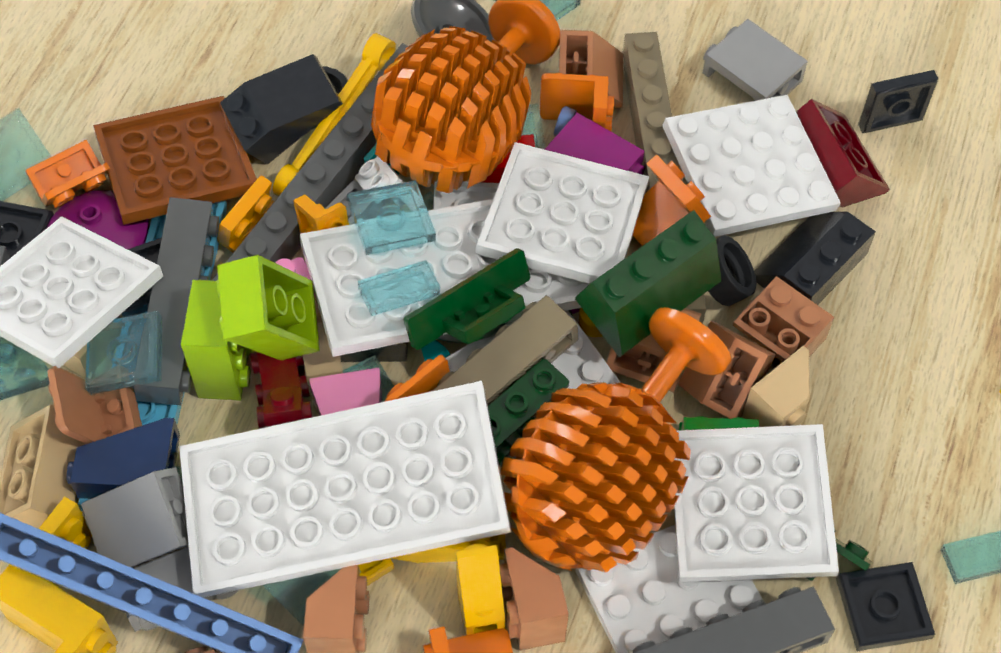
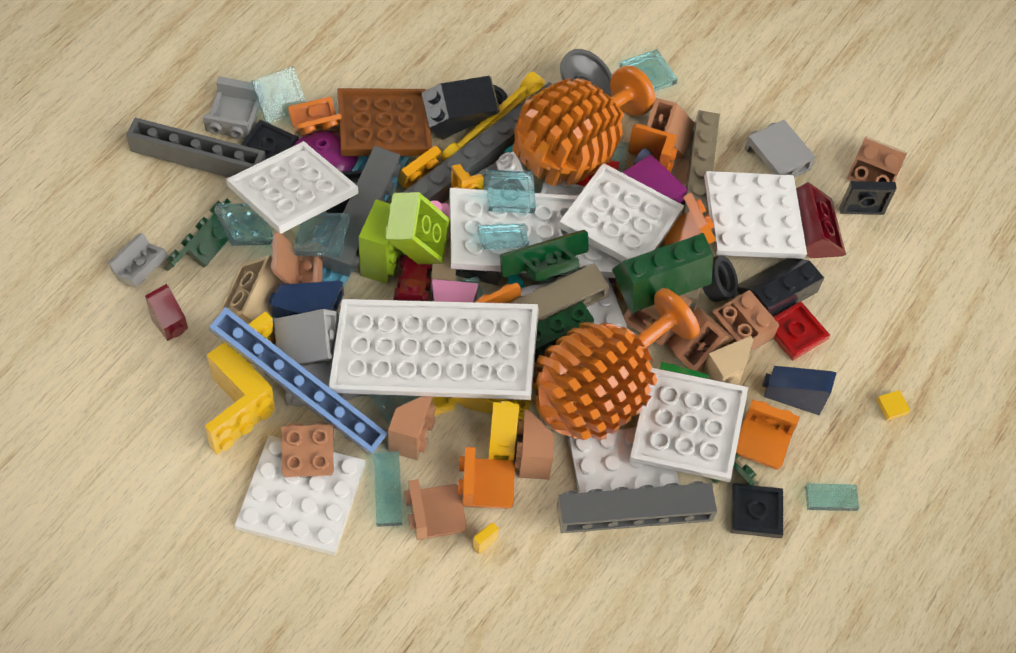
camera: 10 degrees right, 0 degrees up
(860, 318) = (799, 331): none -> red tile
(865, 485) = (766, 434): none -> orange bracket
(891, 402) = (799, 387): none -> dark blue slope
(892, 49) = (876, 162): none -> nougat slope

